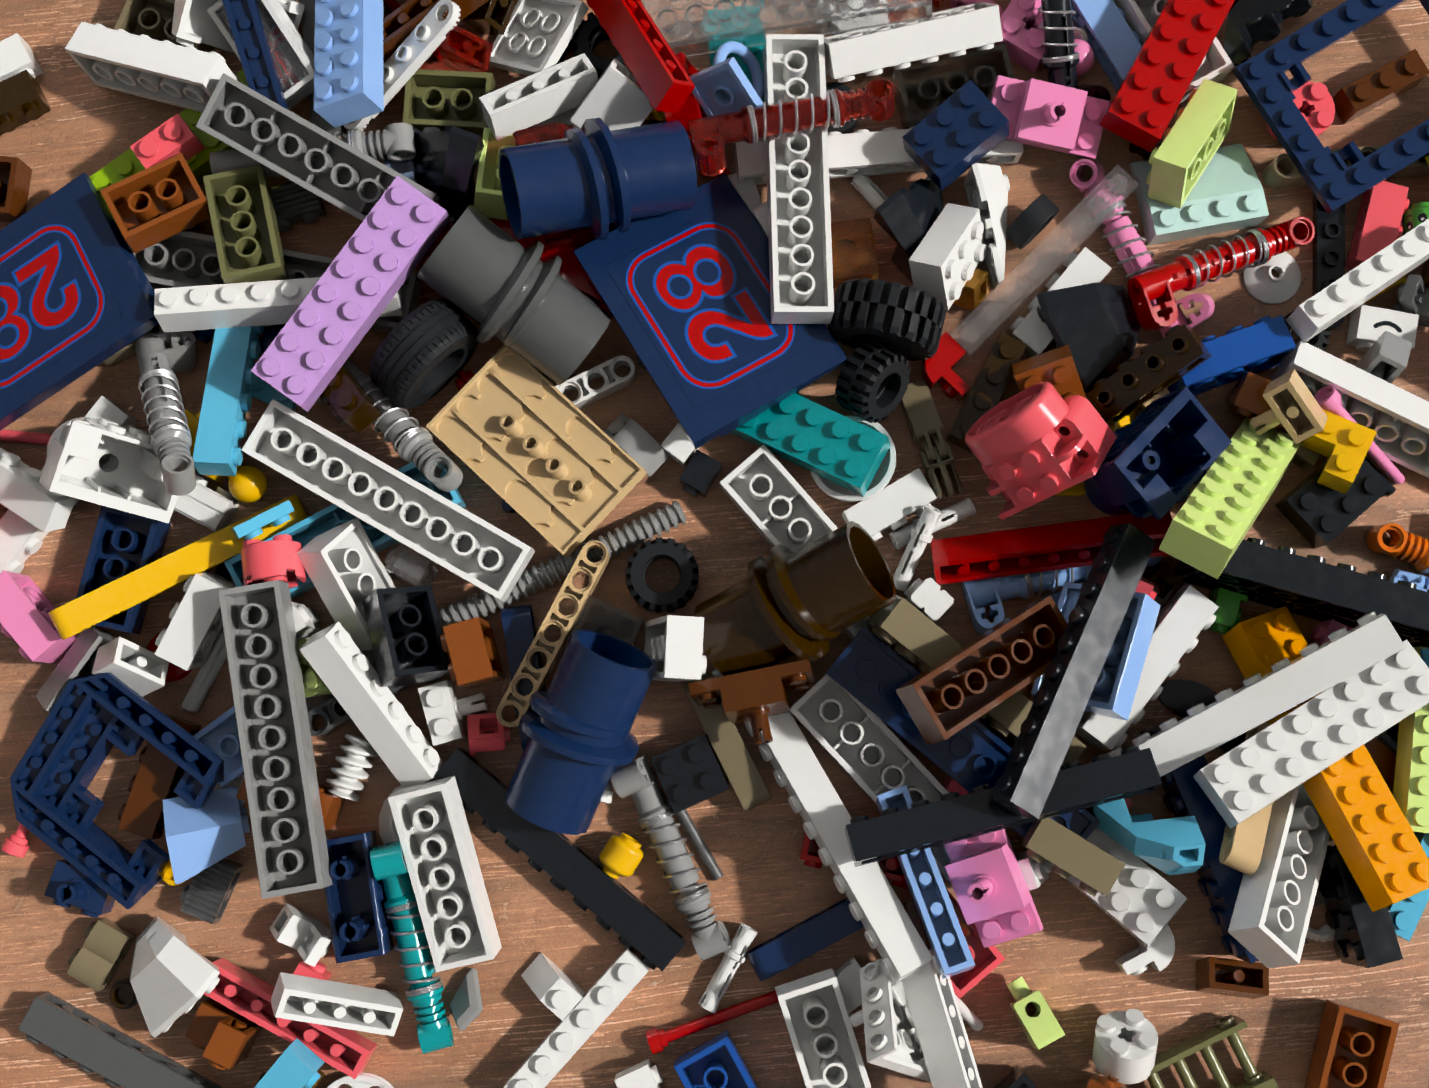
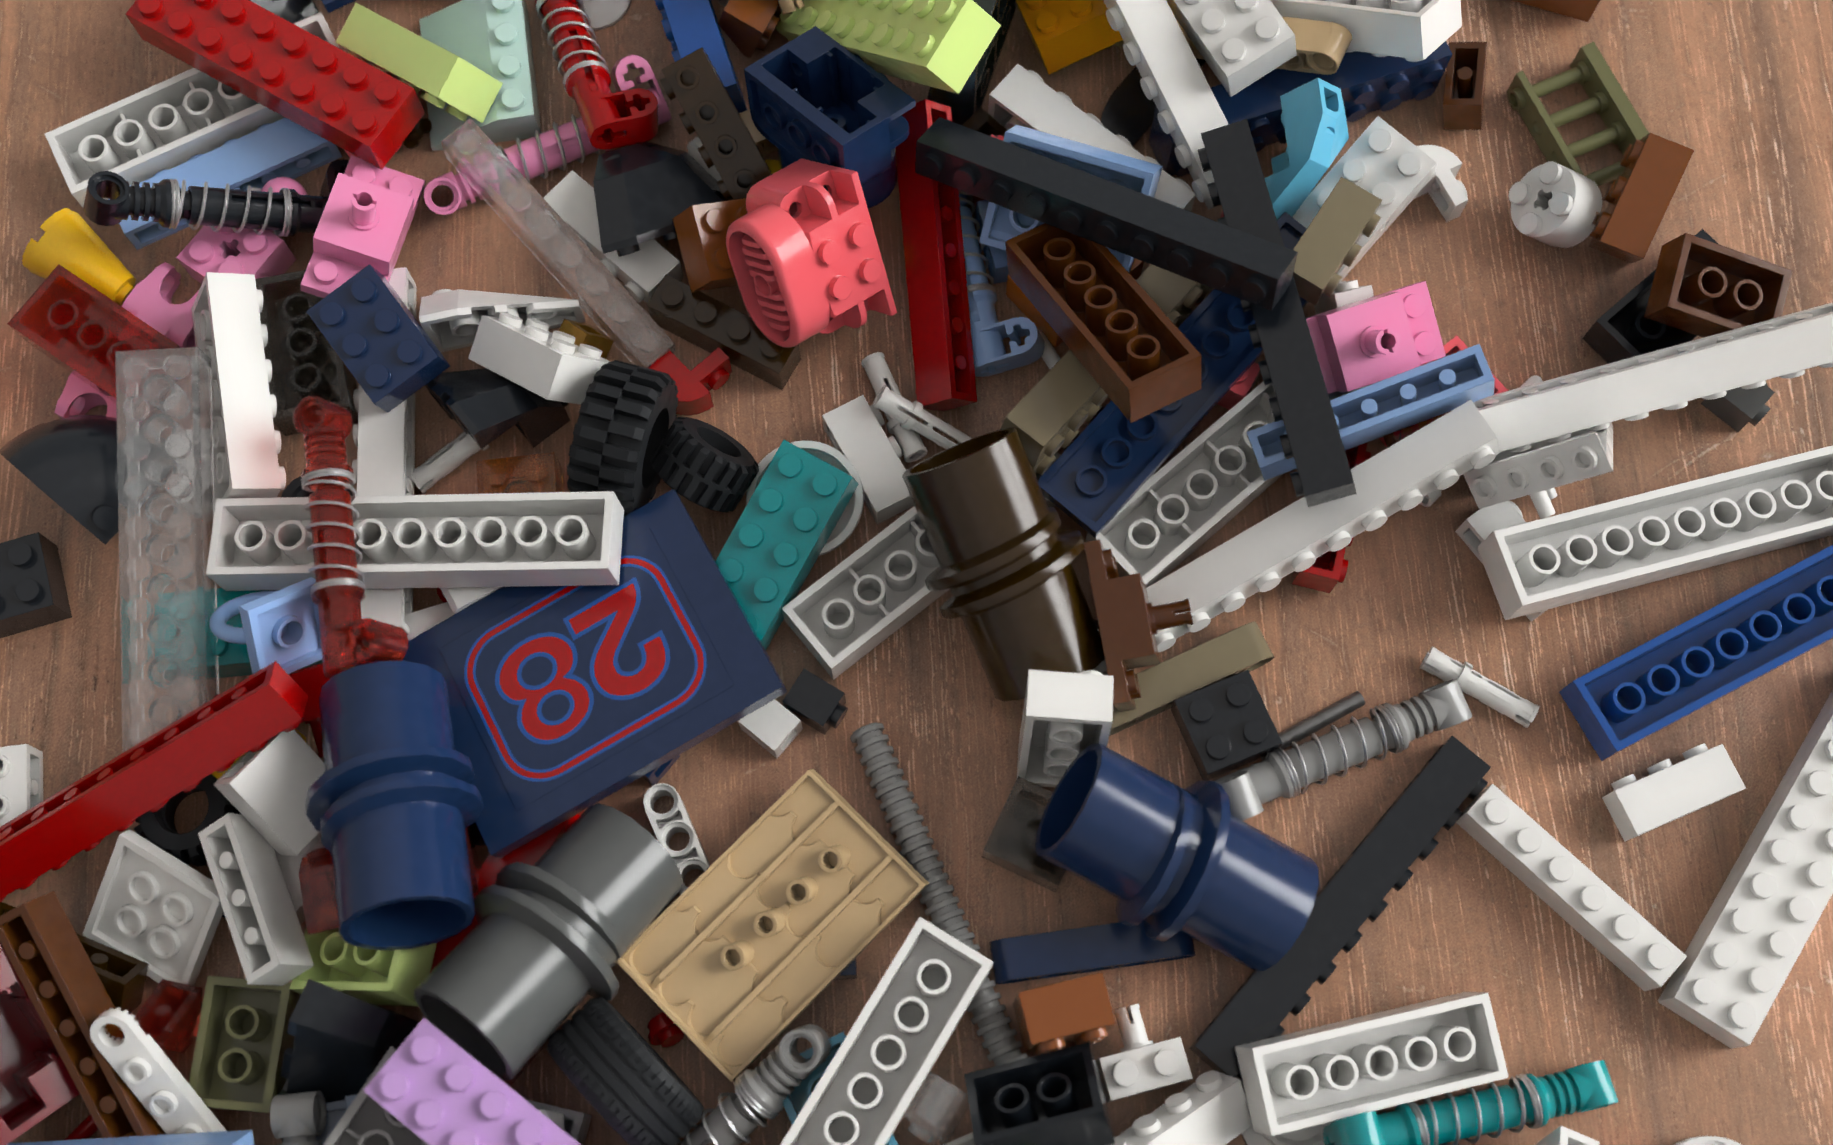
camera: 90 degrees left, 10 degrees down
(467, 1001) = (1542, 1041): light grey piece -> none
(486, 733) = (1159, 1003): coral brick -> none
(552, 986) = (1516, 920): white slope -> none
(553, 618) = (1058, 901): tan beam -> none
(621, 855) = (1337, 822): yellow head -> none
(637, 443) = (766, 784): light grey brick -> none
(650, 552) = (960, 722): black tyre -> none
(659, 1038) = (1576, 778): red piece -> none
(803, 940) = (1437, 584): dark blue beam -> none
(927, 430) = (769, 408): dark tan arm -> none
(928, 598) = (994, 403): white brick -> none
(1032, 221) = (501, 261): black tyre -> none
(1042, 1026) = (1524, 309): yellowish green torso -> none
(1228, 612) = (1007, 59): bright green brick -> none

